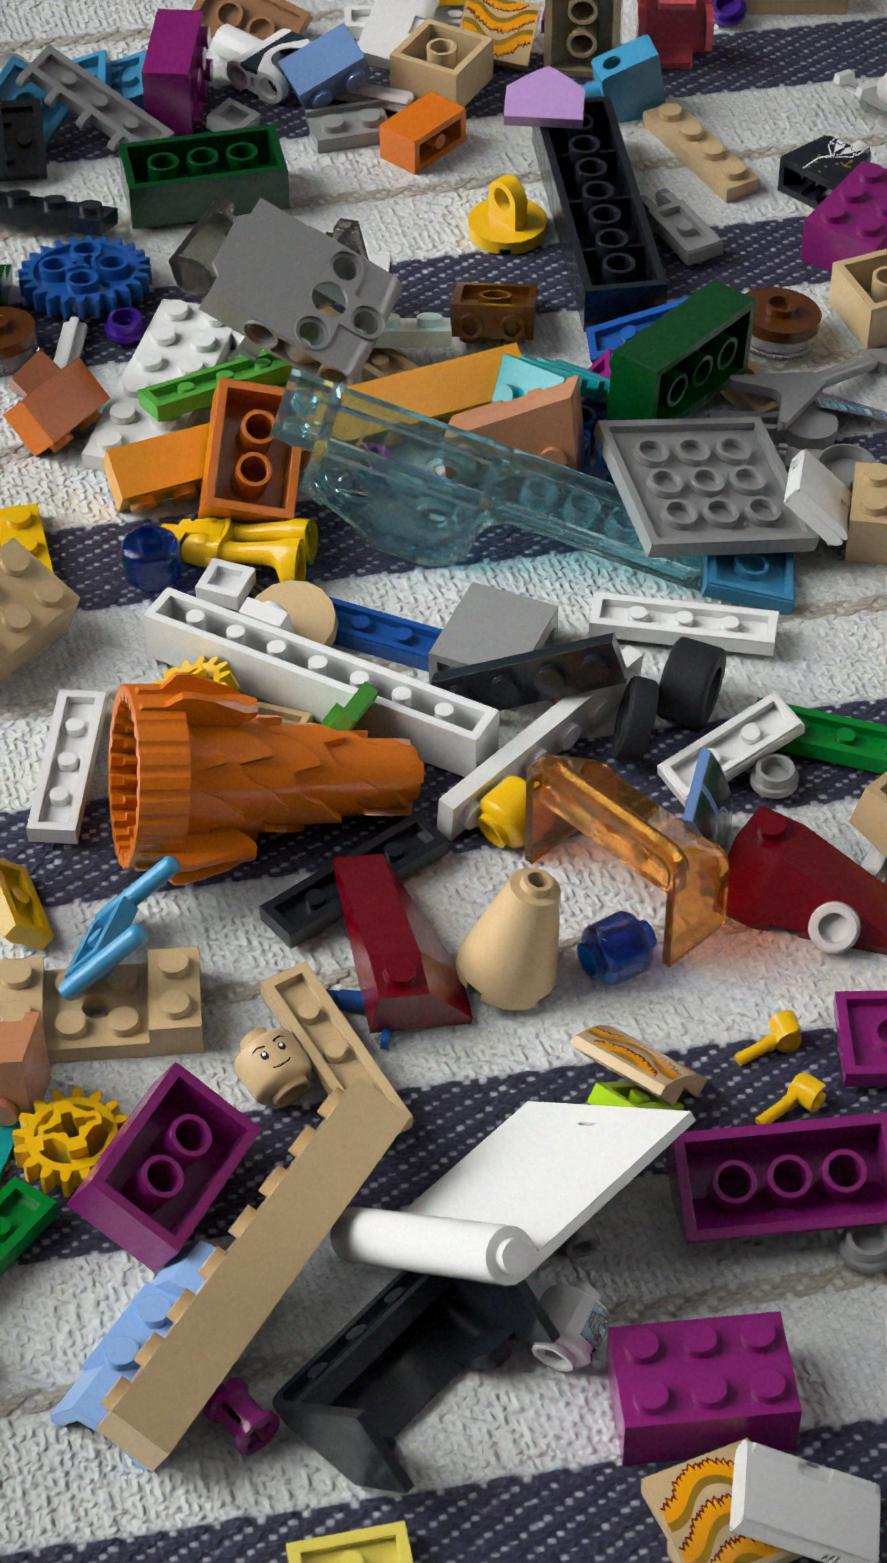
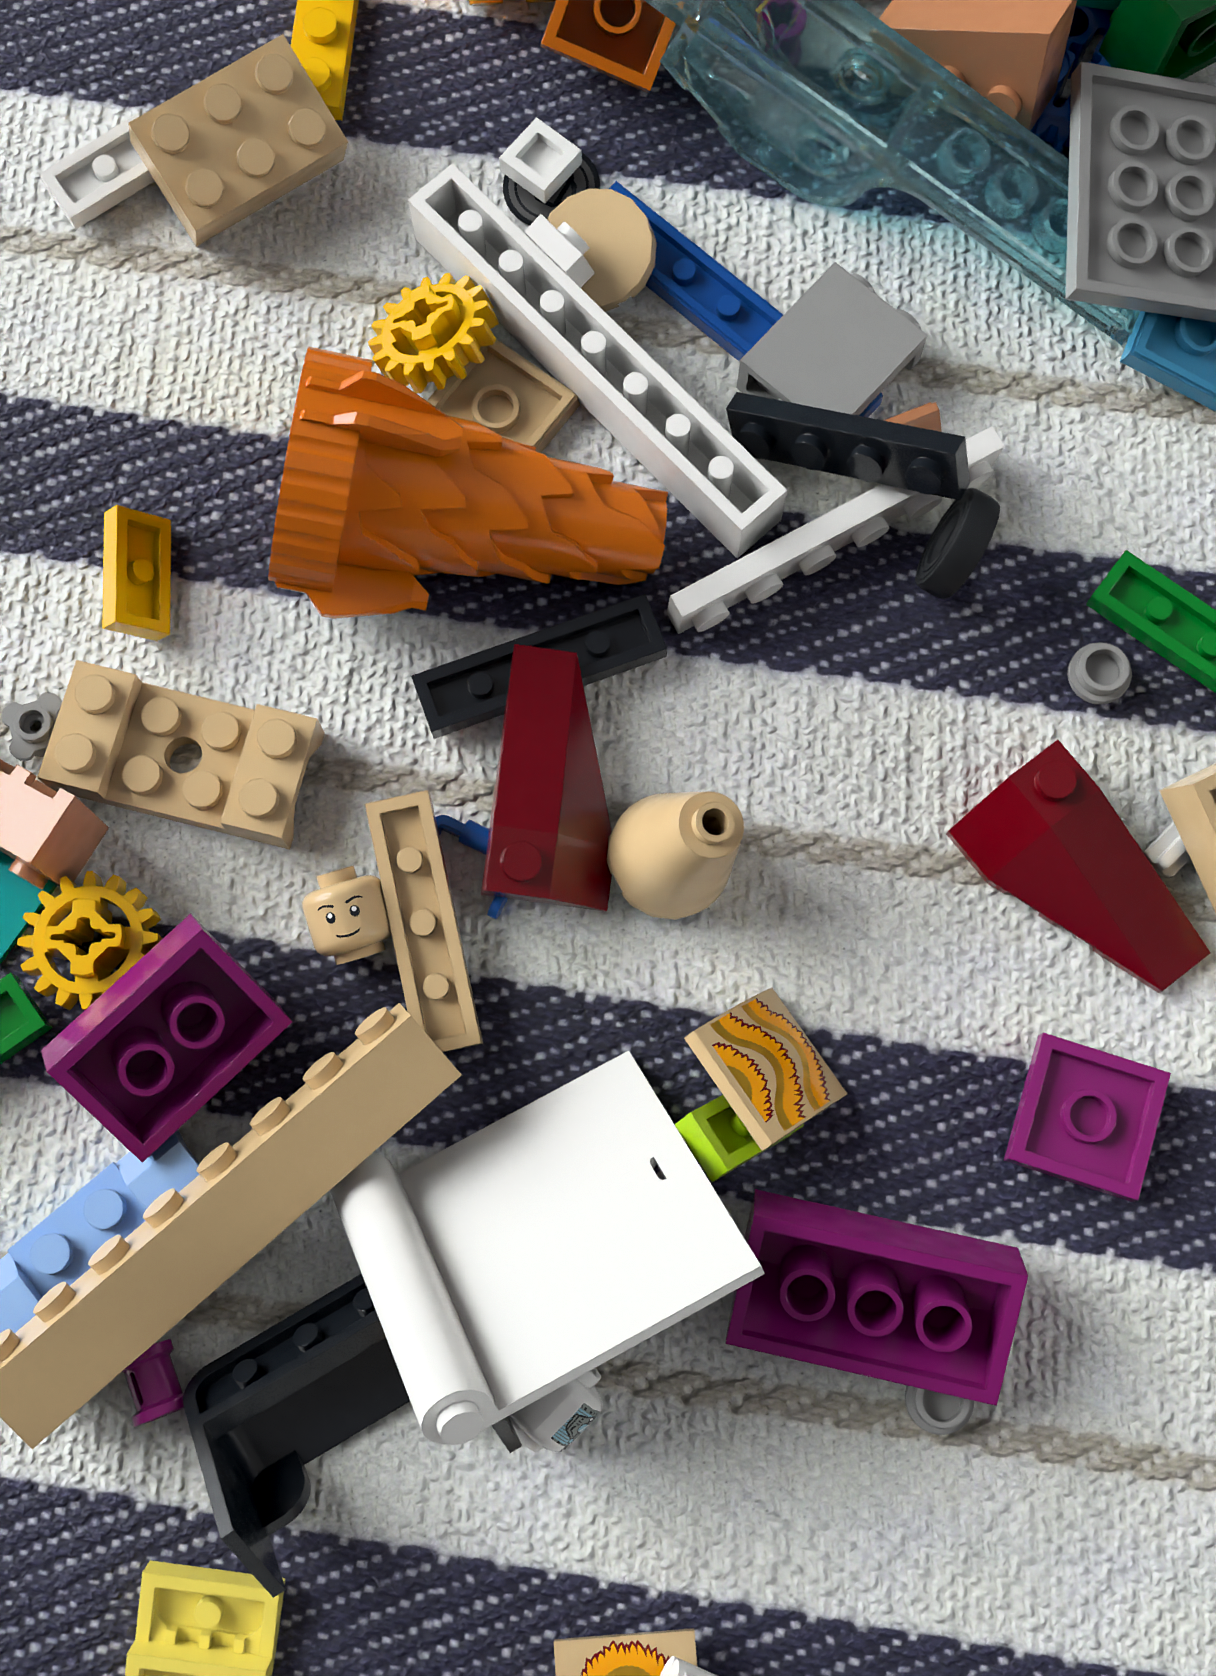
camera: 20 degrees right, 30 degrees up
(67, 767) = (263, 385): white plate -> none
(111, 933) = (189, 706): dark azure plate -> none
(151, 558) = (461, 94): clear blue head -> none
(279, 544) = (549, 87): yellow piece -> none
(347, 717) = (599, 436): bright green plate -> none
(504, 813) = (761, 630): yellow head -> none
(589, 797) = (871, 749): clear orange windscreen -> none
(616, 948) = (807, 879): clear blue head -> none
(668, 620) = (1080, 397): white plate -> none
(691, 682) = (1048, 507): black tyre -> none
(701, 1386) = (671, 1542): magenta brick -> none
(709, 801) = (983, 736): black slope -> none
(735, 743) = (1062, 619): white tile -> none
(784, 1036) = (963, 1063): yellow hand -> none
(803, 1091) = (953, 1155): yellow hand -> none
(834, 927) = (1082, 932): white tile -> none

